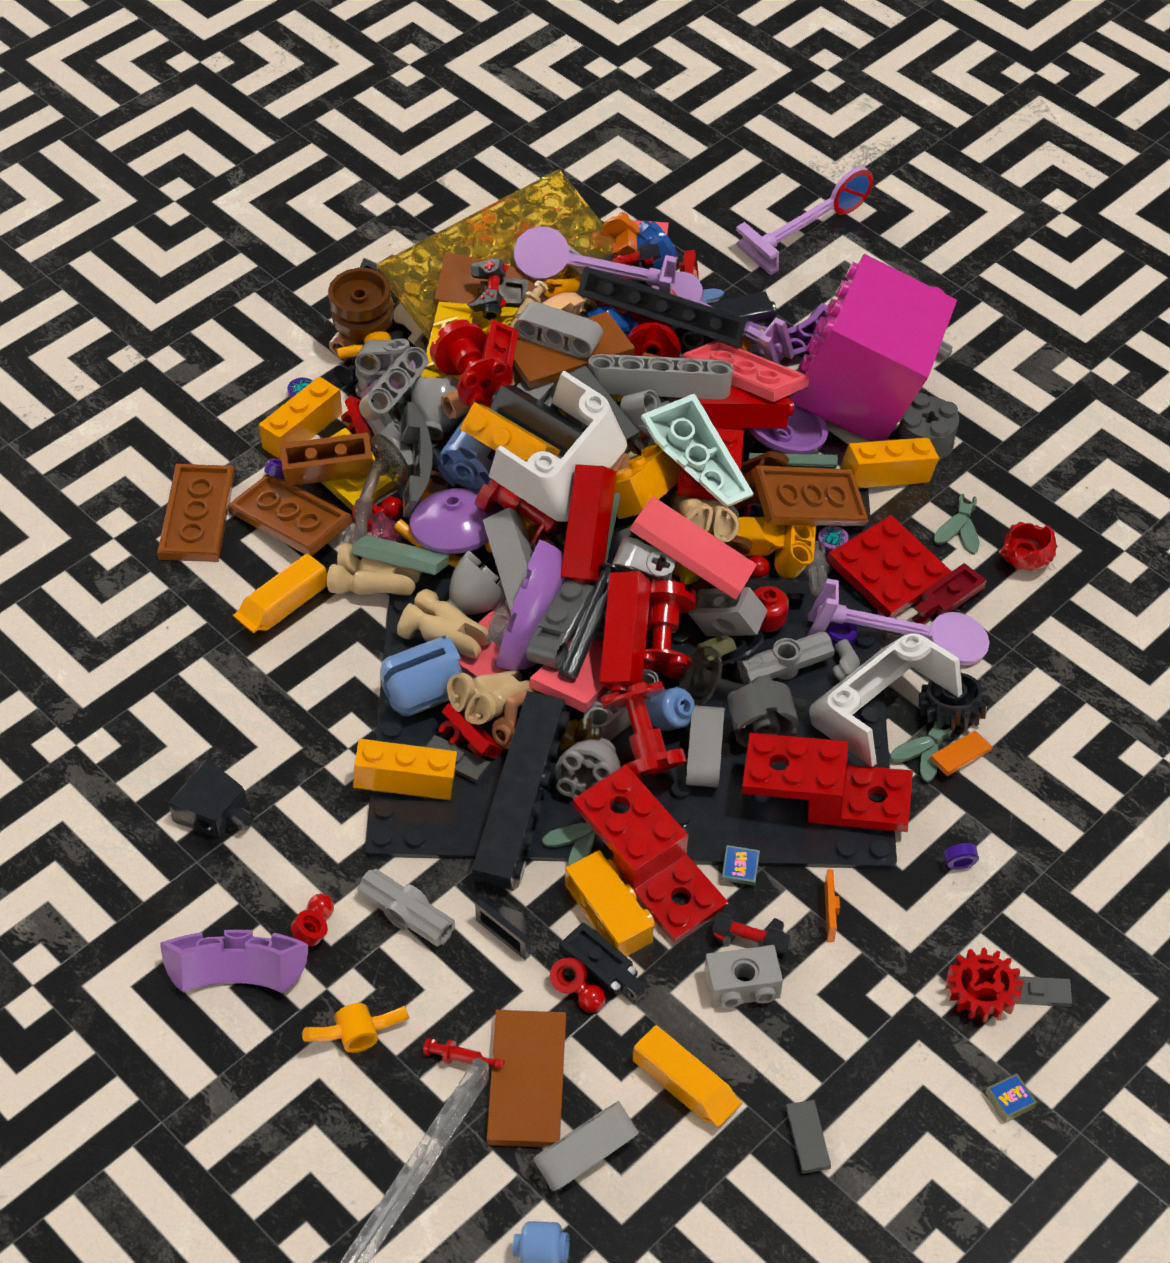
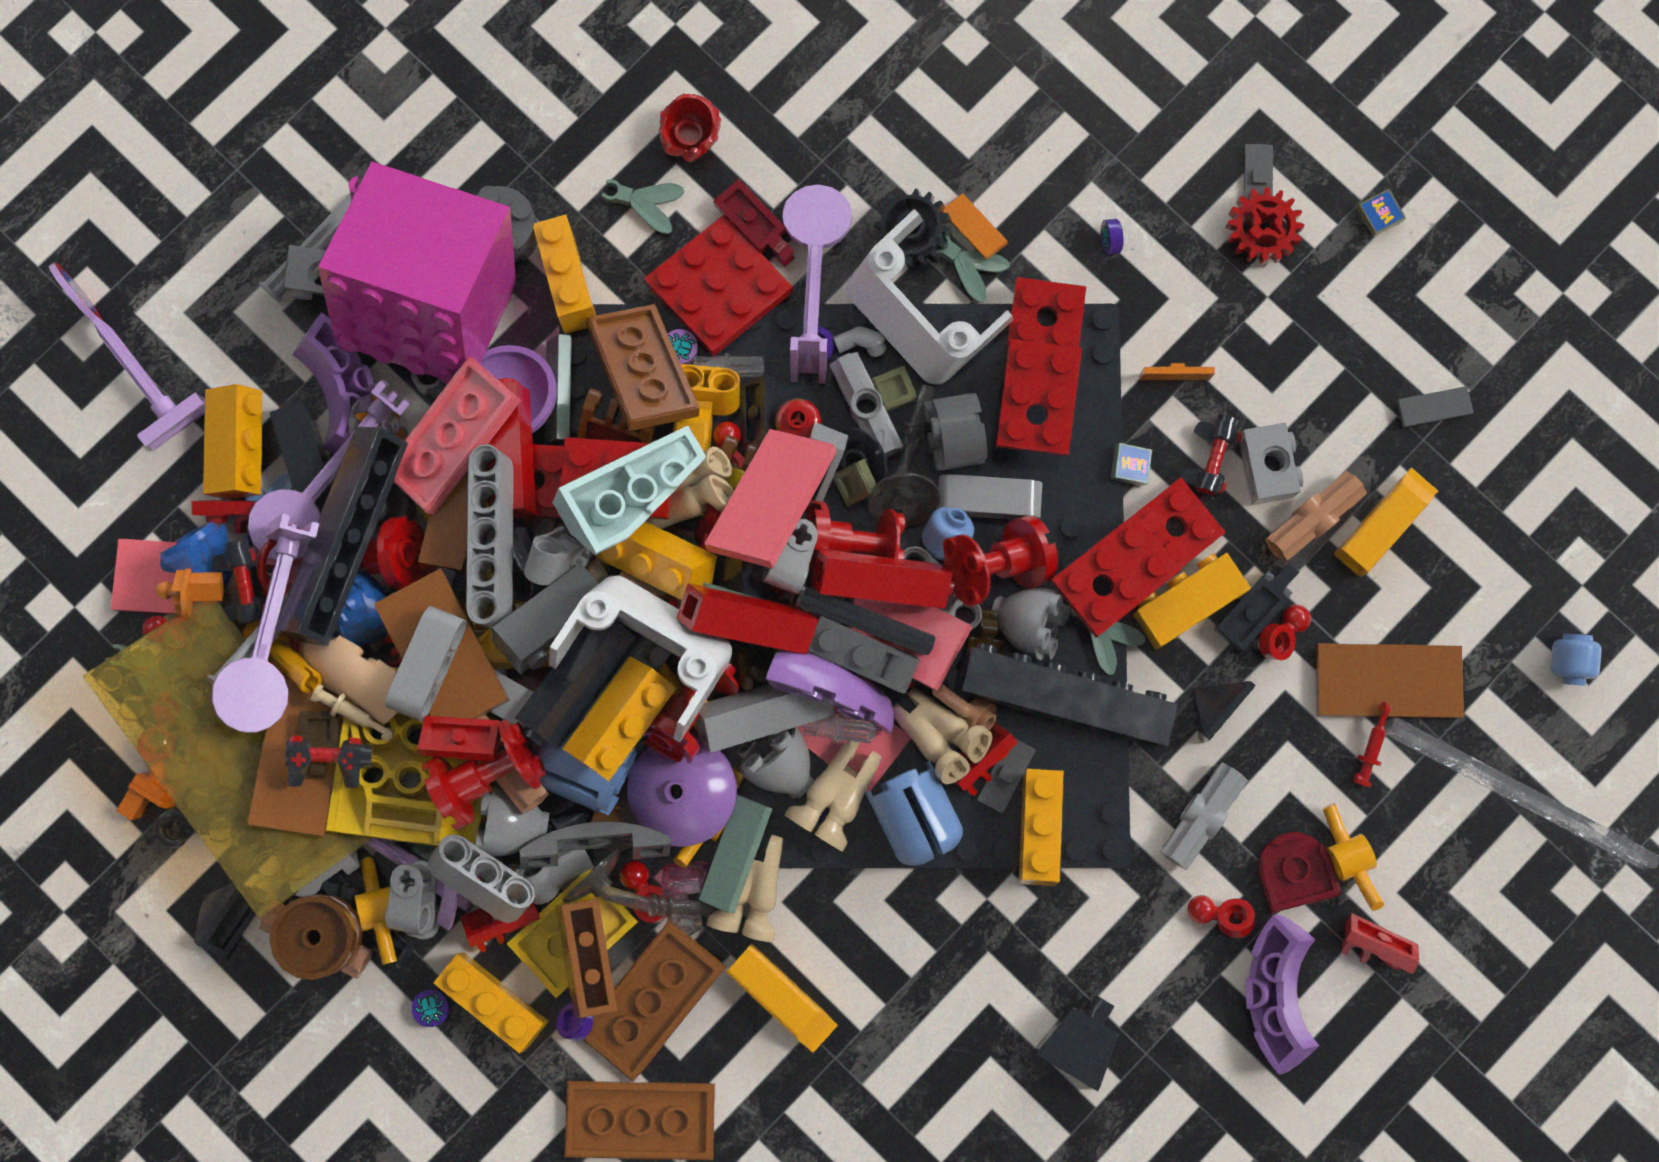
camera: 90 degrees left, 30 degrees up
(271, 1048) = (1390, 947): none -> red plate
(347, 981) = (1296, 872): none -> dark red tile
(585, 1146) = (1470, 619): light grey beam -> none
(692, 1016) = (1315, 516): none -> nougat piece
(742, 275) = (232, 442): none -> light orange brick
(804, 684) = (895, 388): none -> olive tile

